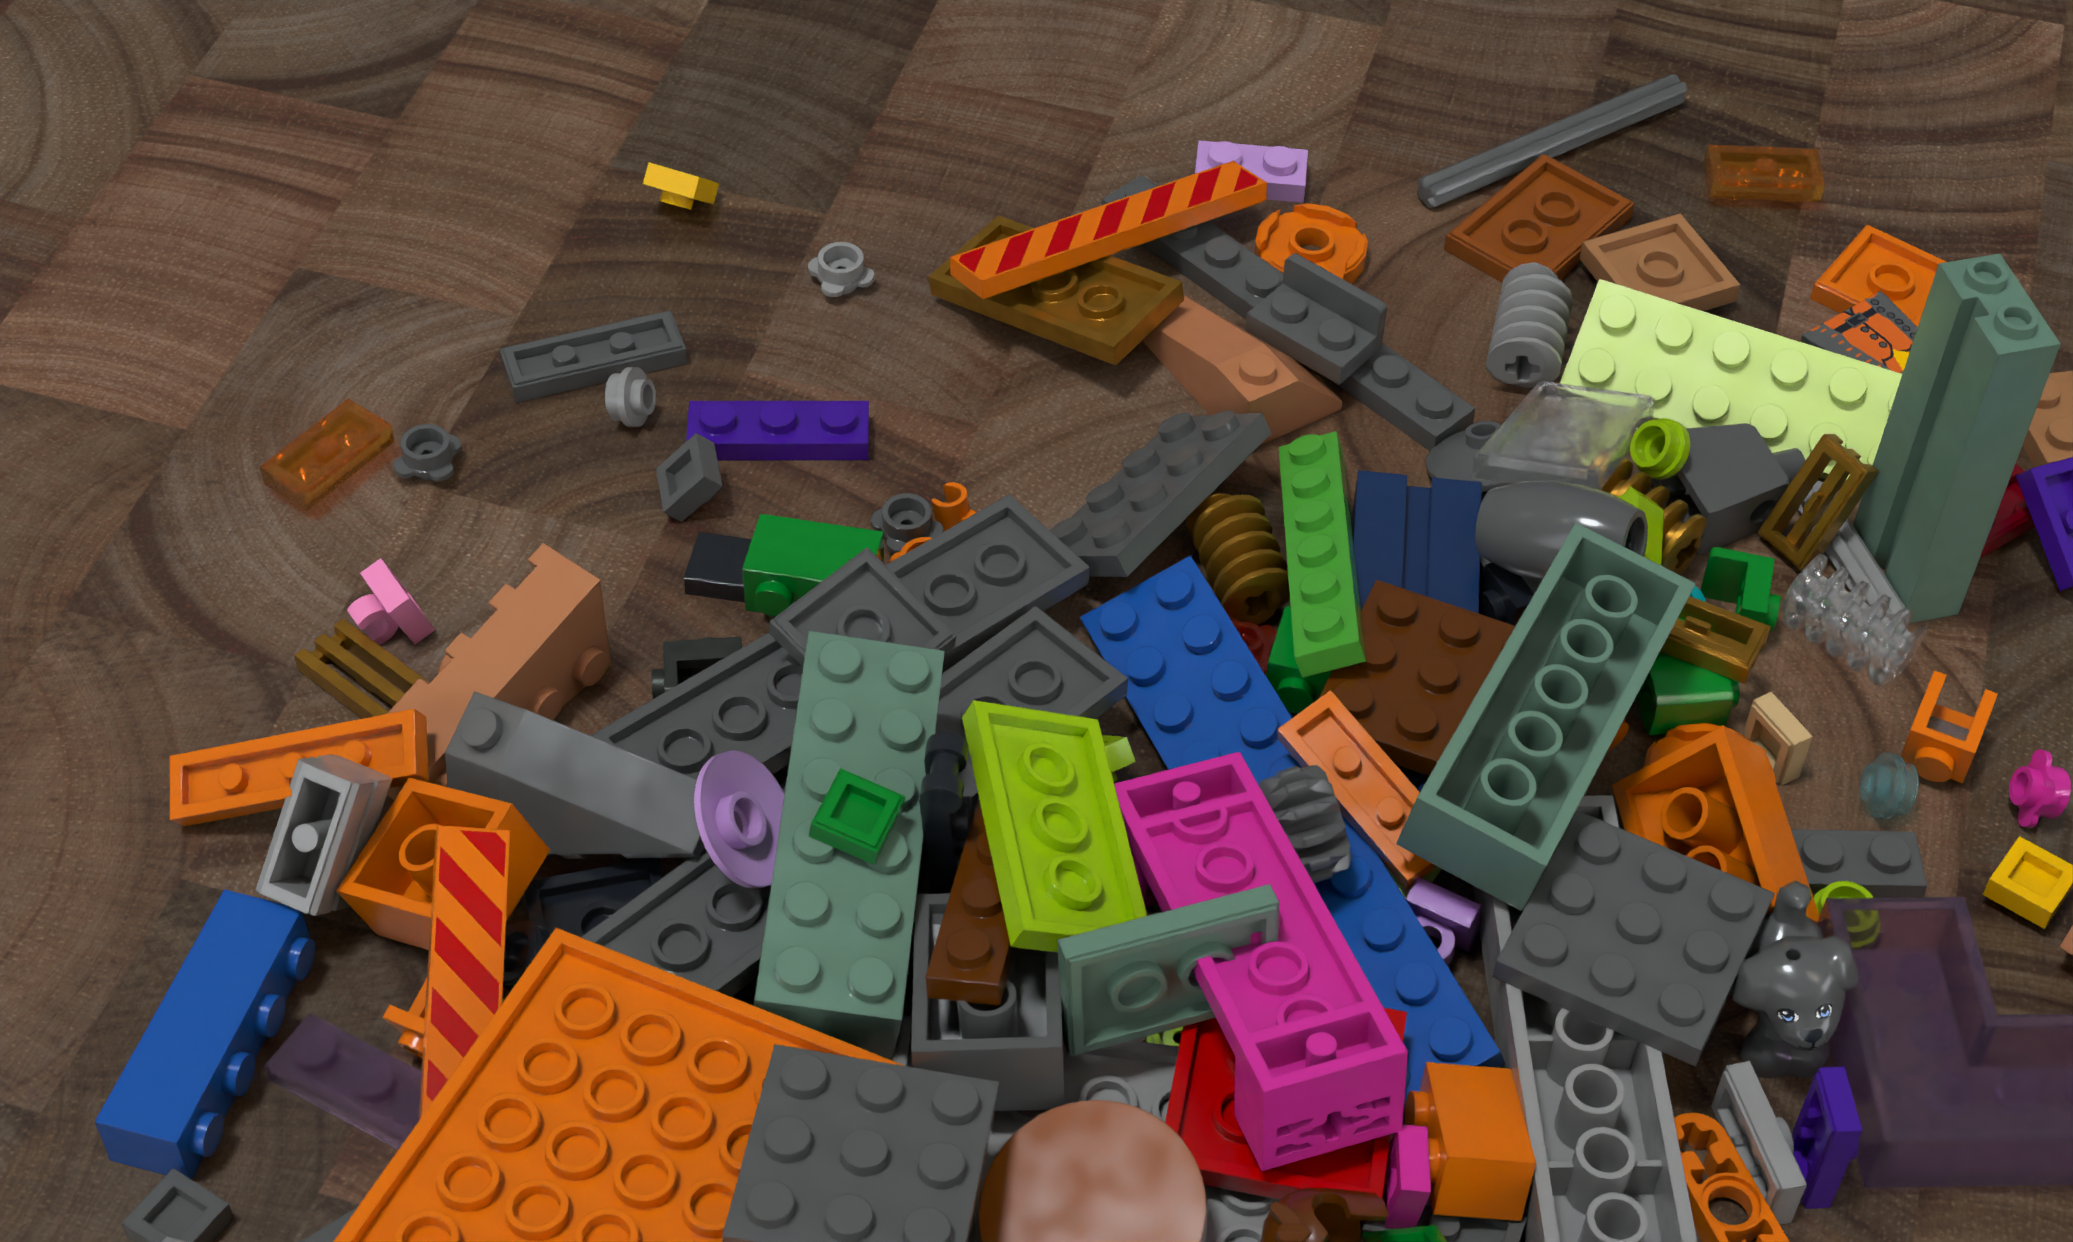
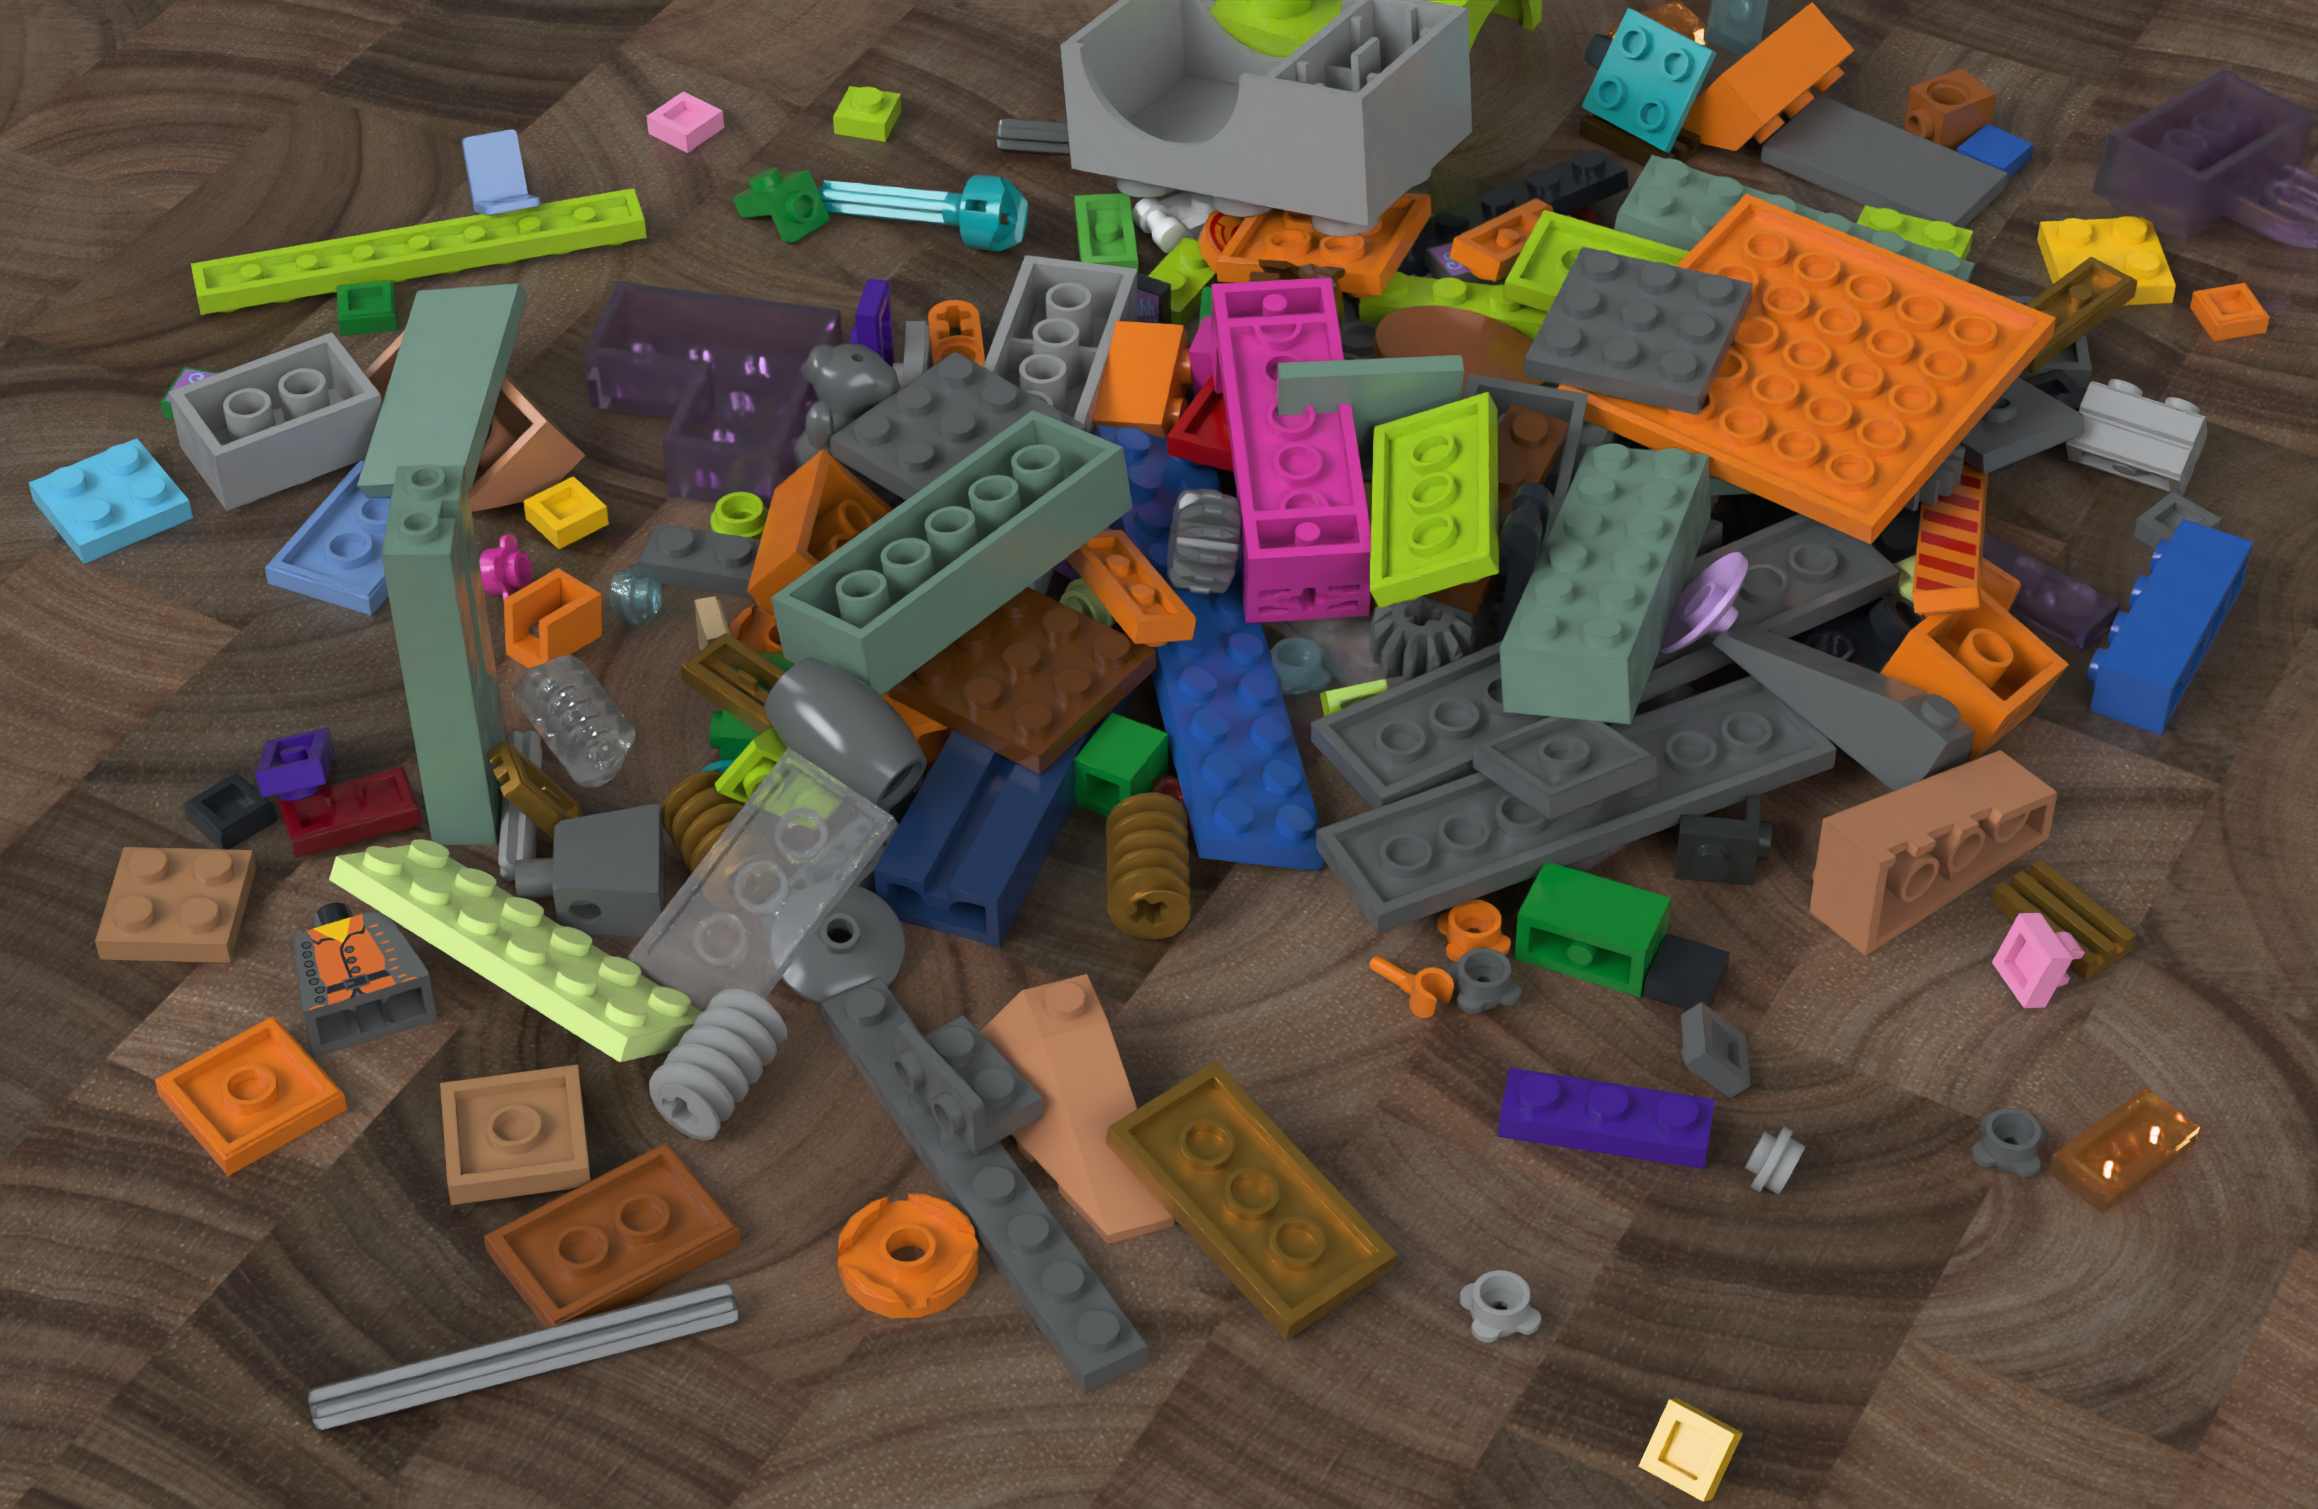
camera: 165 degrees left, 5 degrees down
(258, 772) = (2135, 790): orange plate -> none
(322, 832) = (2081, 689): light grey brick -> none
(592, 355) = (1815, 1248): dark grey tile -> none
(856, 816) = (1606, 521): green tile -> none
(1107, 229) = (1162, 1229): orange tile -> none
(1158, 489) = (1217, 934): dark grey plate -> none
(1279, 166) = (936, 1379): lavender plate -> none
(1320, 555) = (1073, 822): bright green plate -> none
(1660, 447) = (672, 854): lime plate -> none
(1743, 581) = (658, 757): green bracket -> none
(1764, 173) = (298, 1247): clear orange plate -> none

